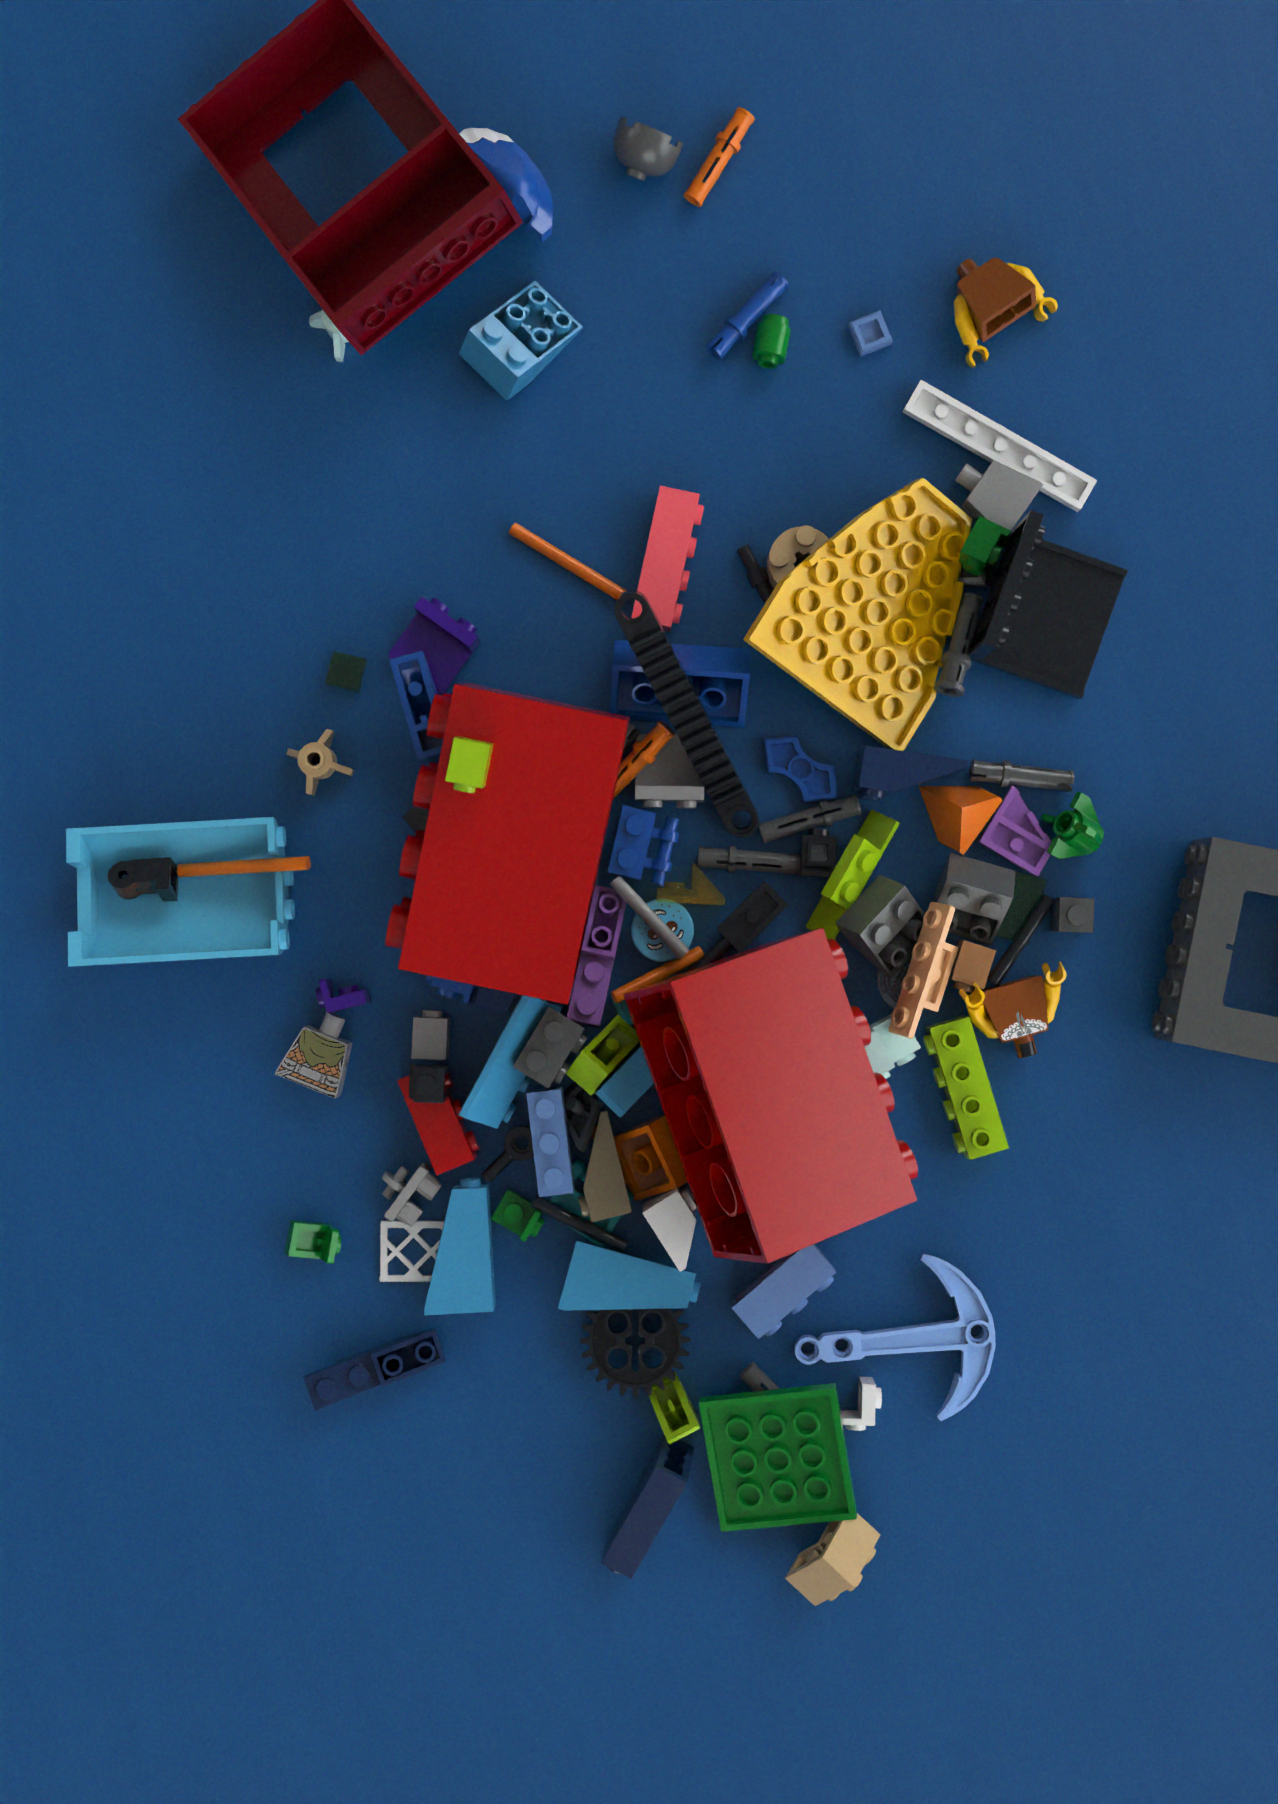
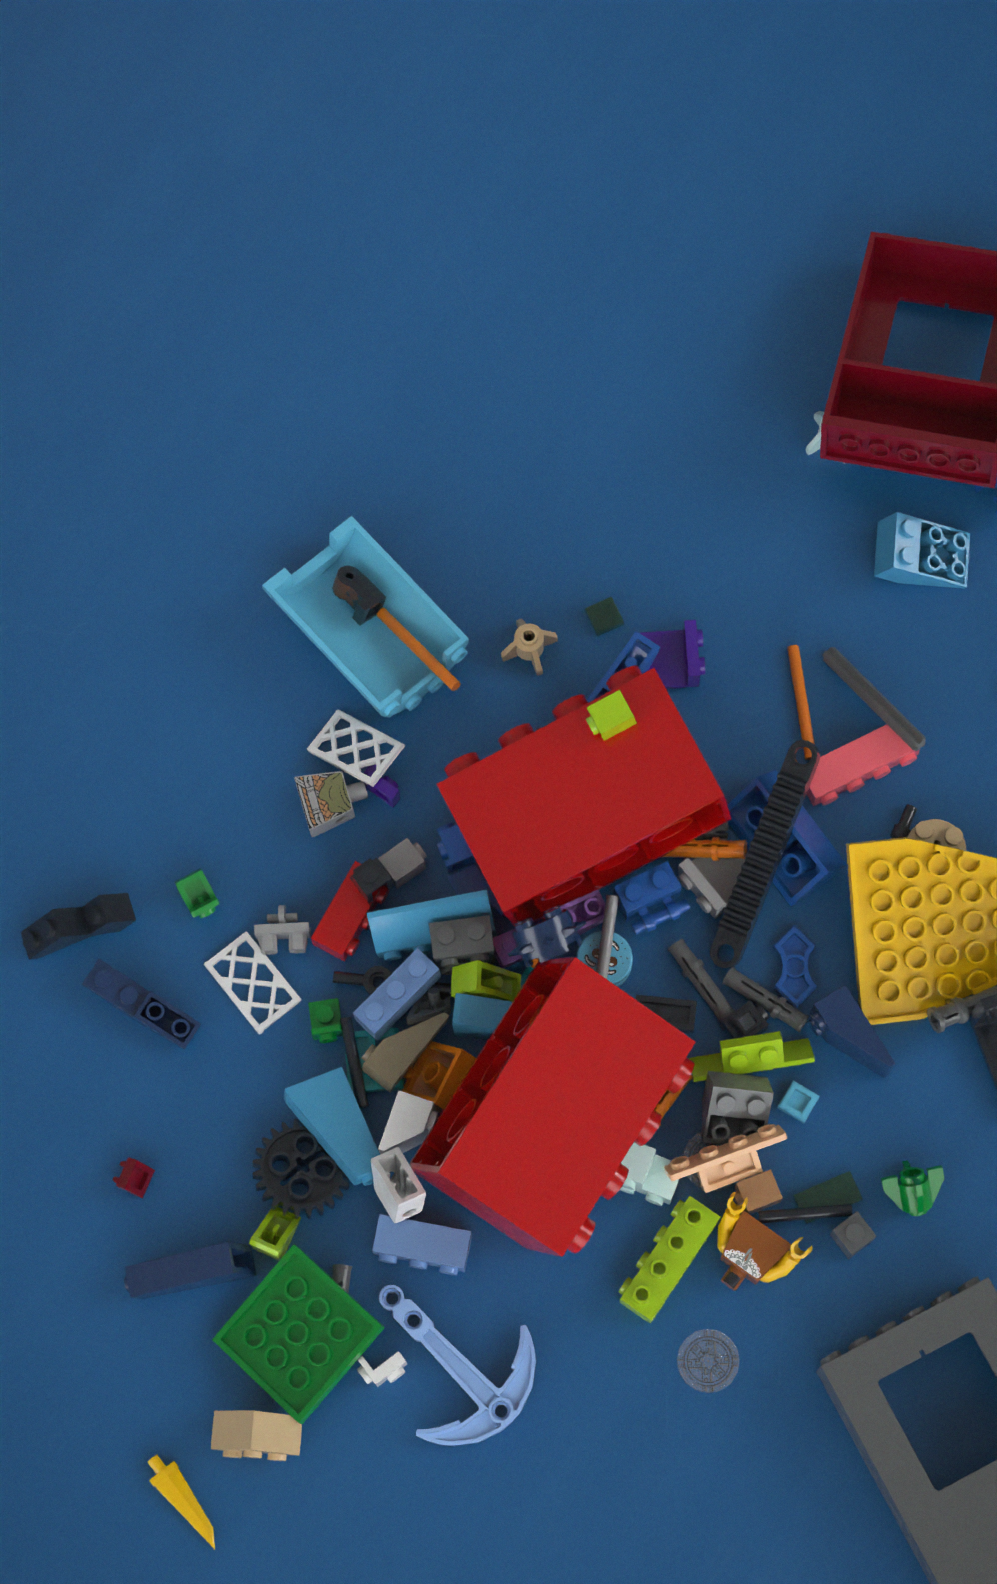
camera: 60 degrees right, 15 degrees down
(255, 1368) = (70, 925): none -> black arch
(281, 1022) = (382, 761): none -> white window
(464, 1260) = (271, 1001): dark azure slope -> none
(525, 1491) = (134, 1177): none -> dark red tile
(610, 973) = (546, 936): none -> dark blue brick
(623, 498) = (874, 699): none -> dark grey axle
(701, 891) = (650, 964): clear yellow slope -> none
(724, 1277) = (402, 1193): none -> white torso
(825, 1656) = (176, 1490): none -> yellow bar
(919, 864) = (798, 1102): none -> medium azure tile
(958, 813) = (856, 1099): orange slope -> none
(979, 895) = (806, 1156): dark grey slope -> none
(1010, 774) = (919, 1121): dark grey pin -> none
(1016, 834) = (876, 1151): medium lavender wing -> none
(1073, 1122) = (708, 1361): none -> clear tile

